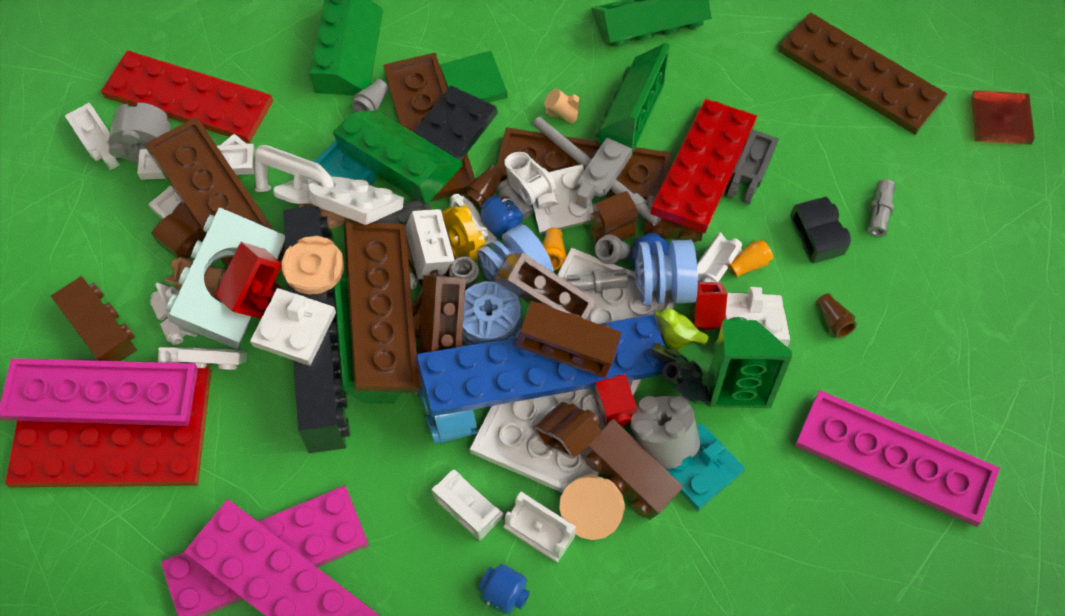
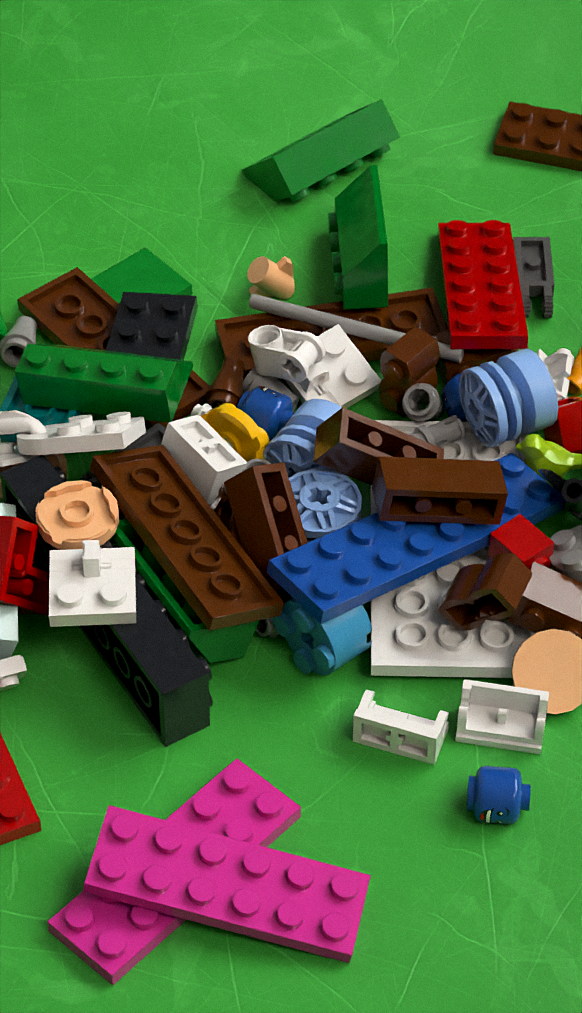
camera: 25 degrees left, 15 degrees down
(602, 171) = (368, 321): light grey hinge -> none

